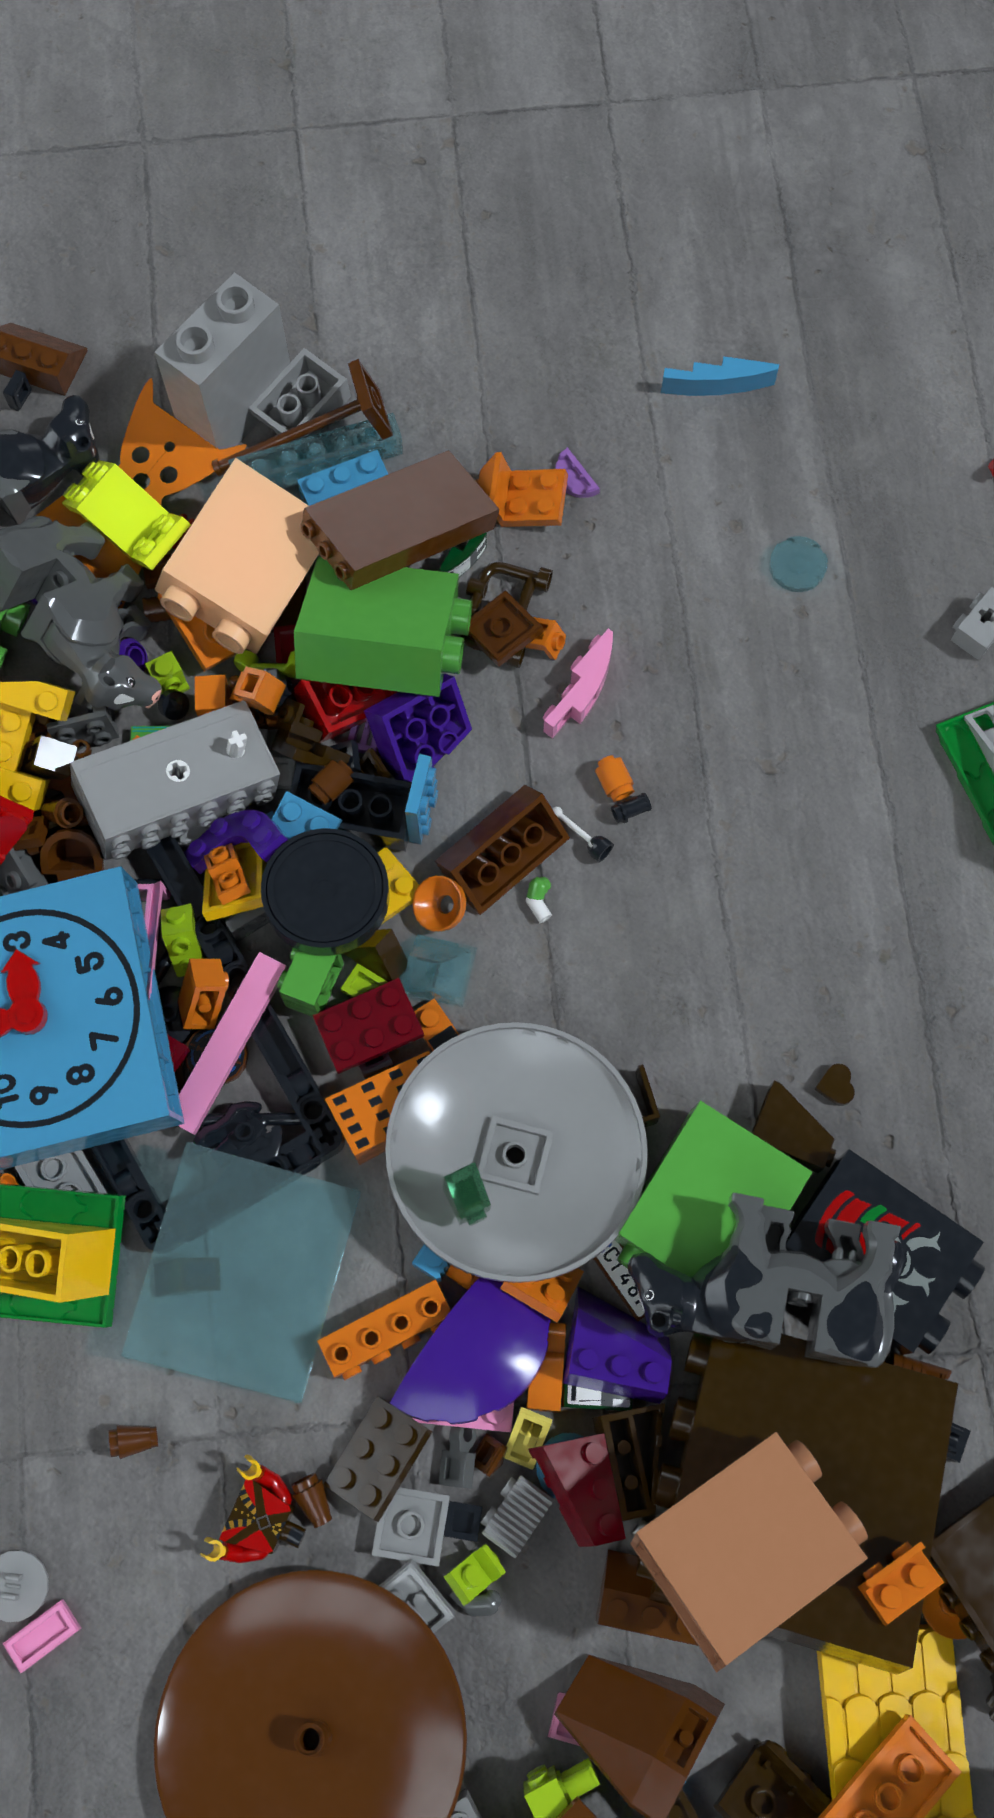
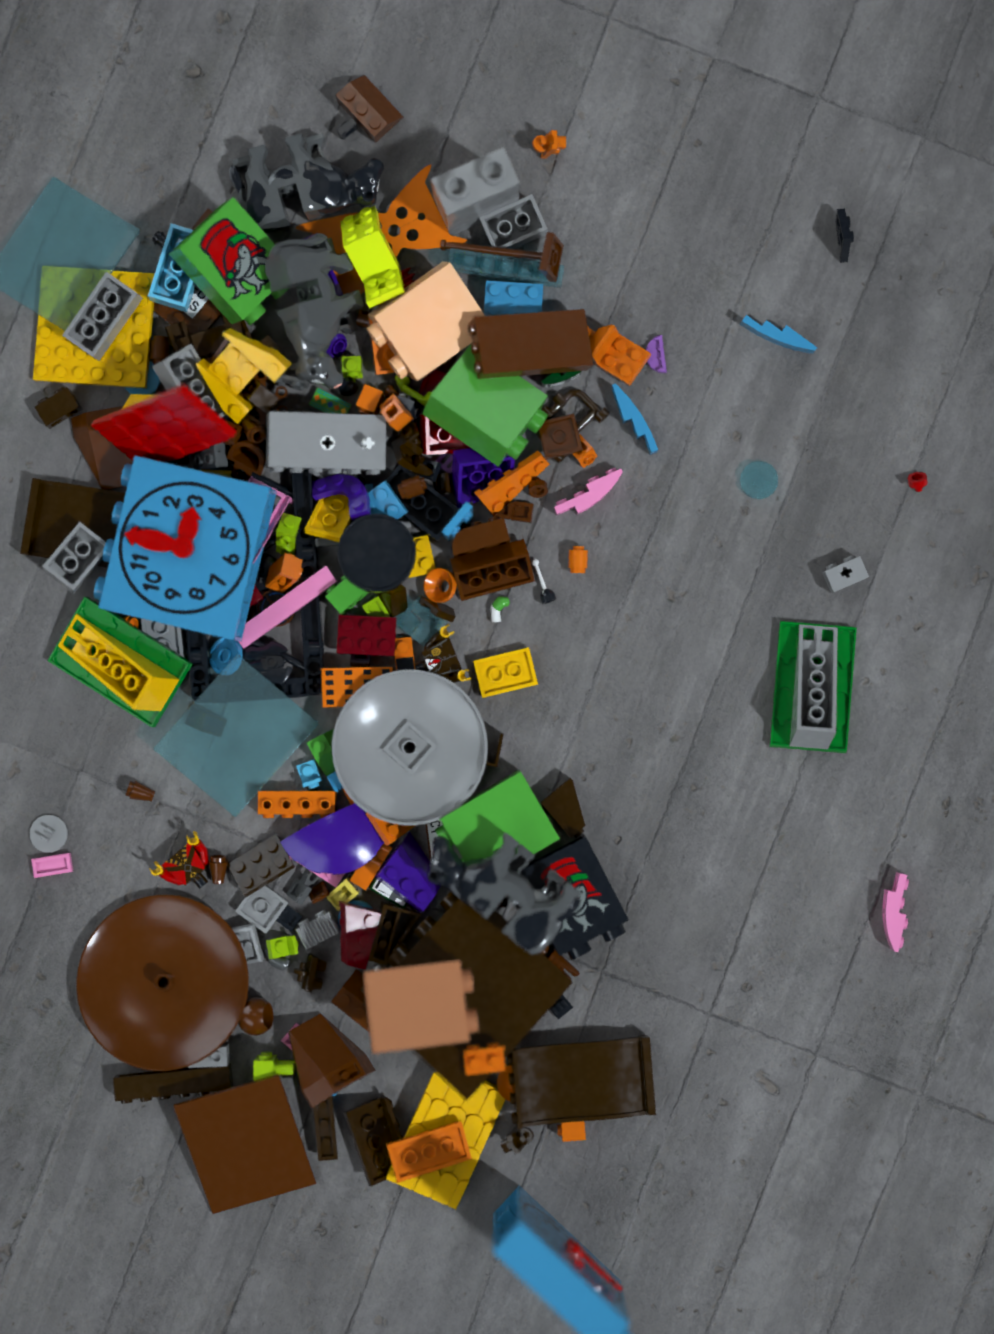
camera: 30 degrees right, 15 degrees up
(164, 1156) = (223, 652): none -> dark azure tile
(227, 873) = (329, 512): orange slope -> none
(297, 287) = (549, 144): none -> orange hips
(384, 1276) = (309, 774): none -> medium azure bracket
(389, 1229) = (322, 751): none -> bright green slope
(453, 938) = (438, 609): none -> dark brown tile
(462, 732) = (502, 491): none -> orange wing
(464, 805) = (480, 536): none -> reddish brown brick
(467, 1195) = (369, 762): clear green slope -> none
(491, 1716) = (256, 1016): none -> reddish brown helmet
(492, 1000) = (441, 657): none -> dark brown torso
(495, 758) = (517, 512): none -> reddish brown slope
(508, 711) = (538, 488): none -> reddish brown tile
(536, 1597) = (307, 971): none -> dark brown hips
(582, 558) = (630, 413): none -> dark azure slope
(597, 981) = (505, 672): none -> yellow plate
(632, 807) = (578, 582): black pin -> none
(732, 226) = (844, 235): none -> black wing
(836, 1085) = (605, 796): dark brown tile -> none

